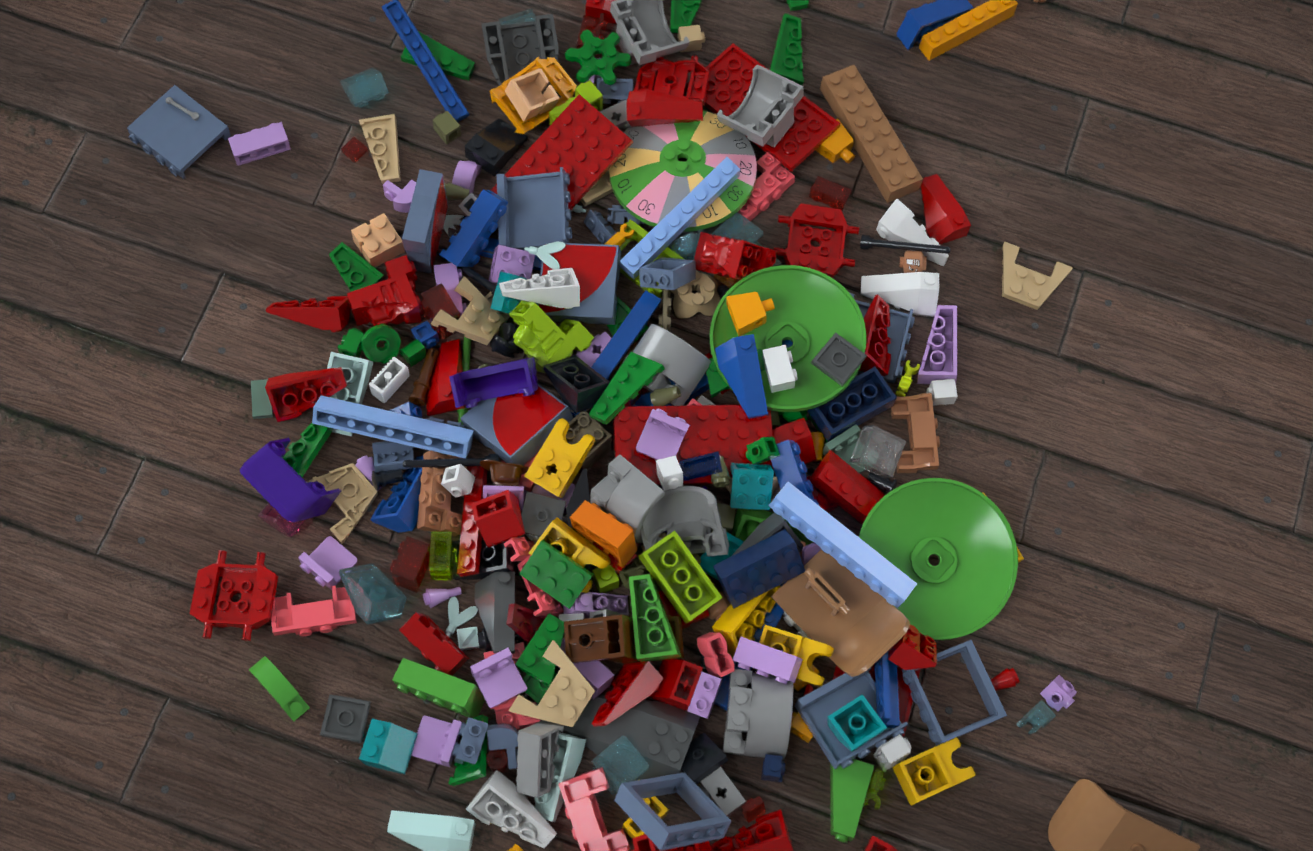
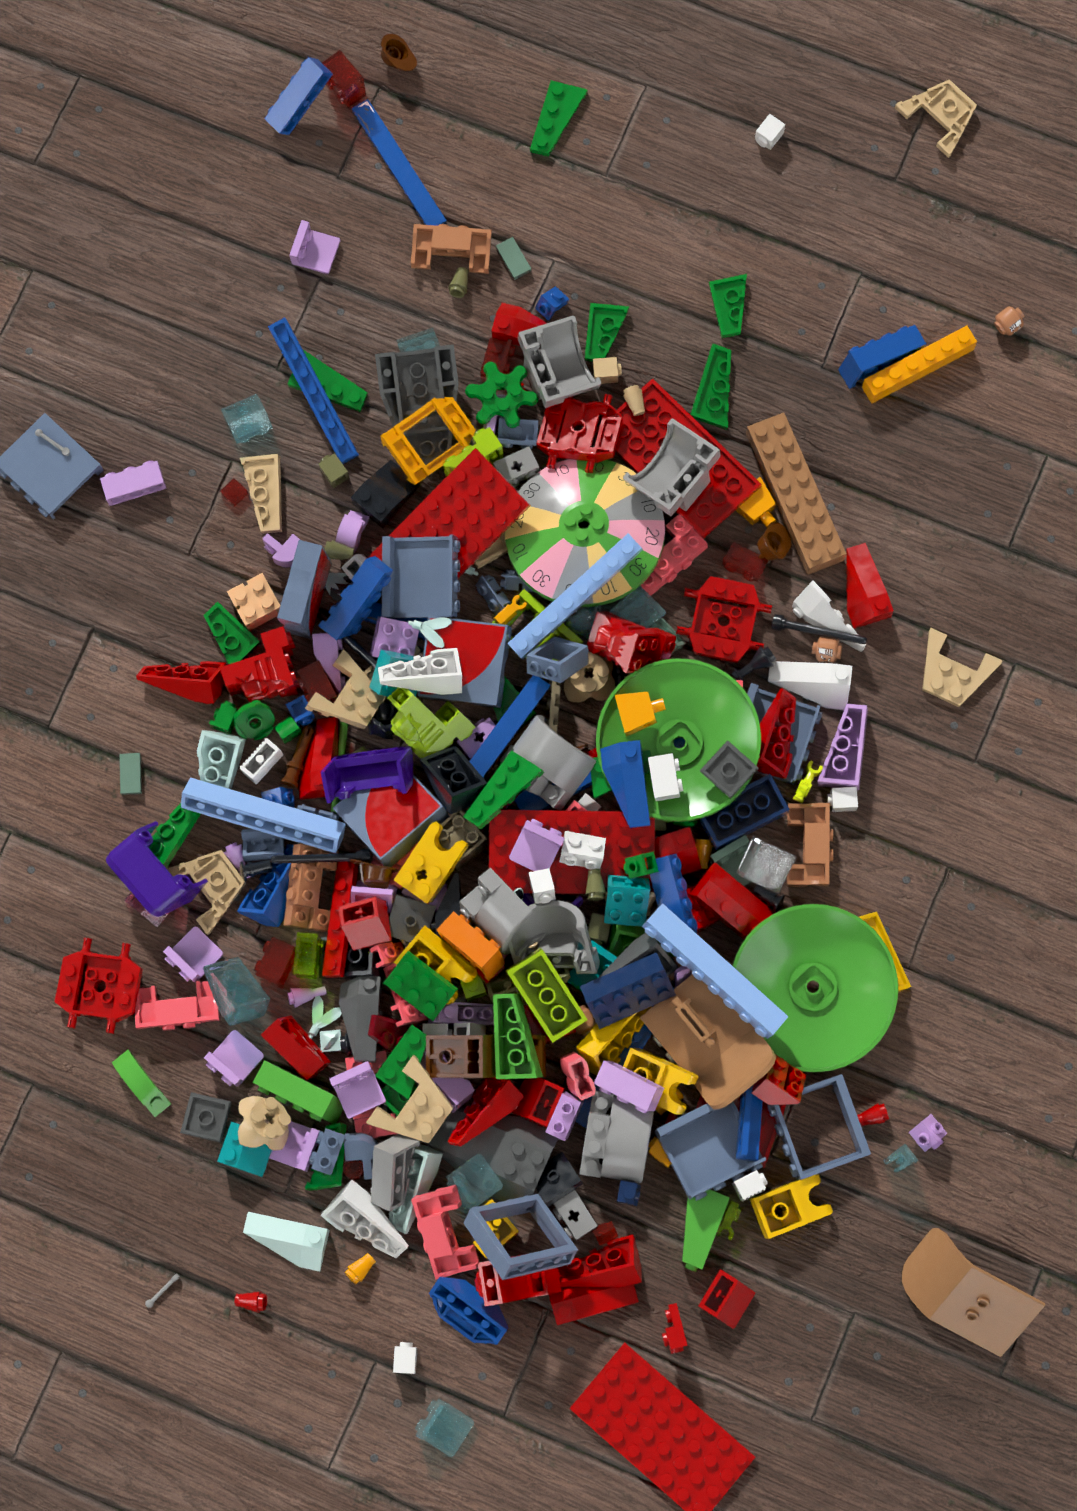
camera: 15 degrees right, 10 degrees up
(299, 391) = (167, 770): red wedge -> none
(372, 659) = (234, 1058): none -> lavender bracket
(397, 725) = (255, 1131): none -> tan brick
(458, 480) = (326, 878): white brick -> none
(527, 95) = (421, 444): light nougat piece -> none
(658, 108) = (562, 461): red wedge -> none
(664, 396) = (542, 799): olive cone -> none
(701, 466) = (575, 879): clear blue tile -> none
(705, 439) = (582, 850): none -> white bracket
(718, 58) = (634, 399): none -> tan cone
(854, 273) = (762, 659): none -> black piece
(855, 174) = (774, 542): none -> reddish brown piece
(855, 723) = (712, 1158): teal slope -> none

